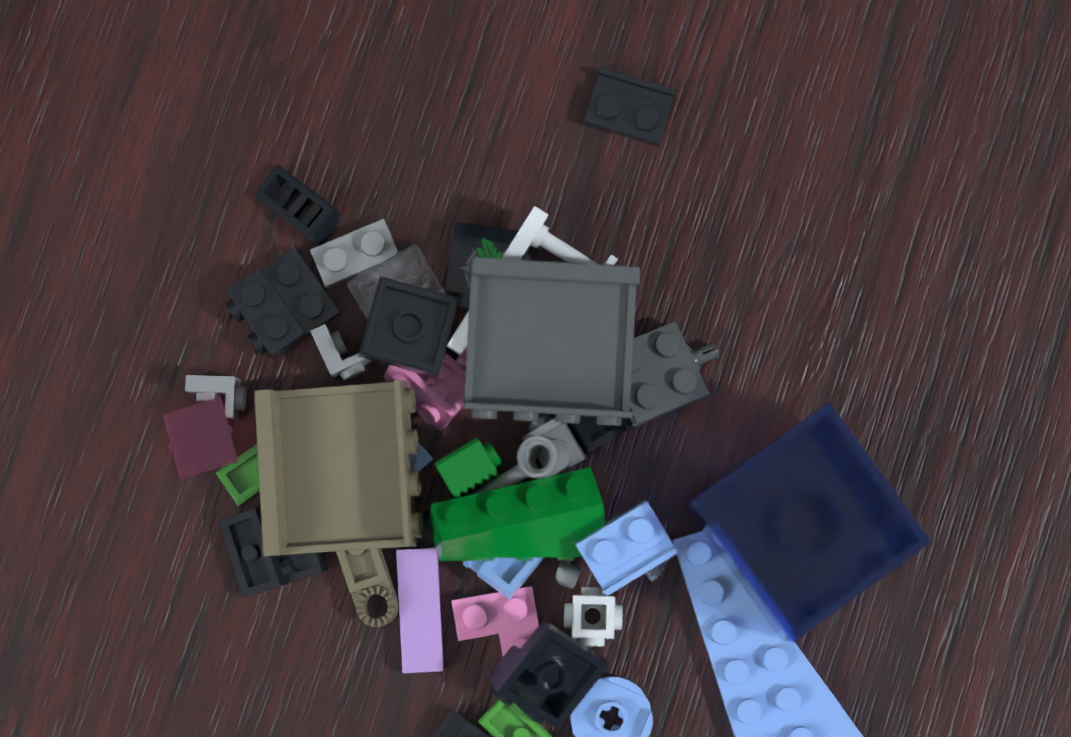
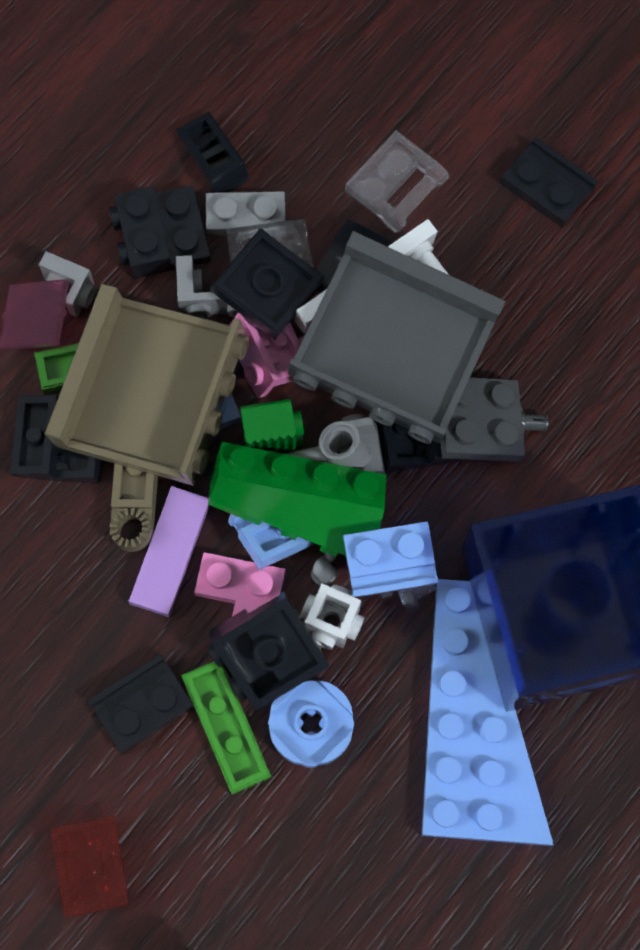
camera: 15 degrees right, 10 degrees down
(473, 160) = (386, 174): none -> clear plate

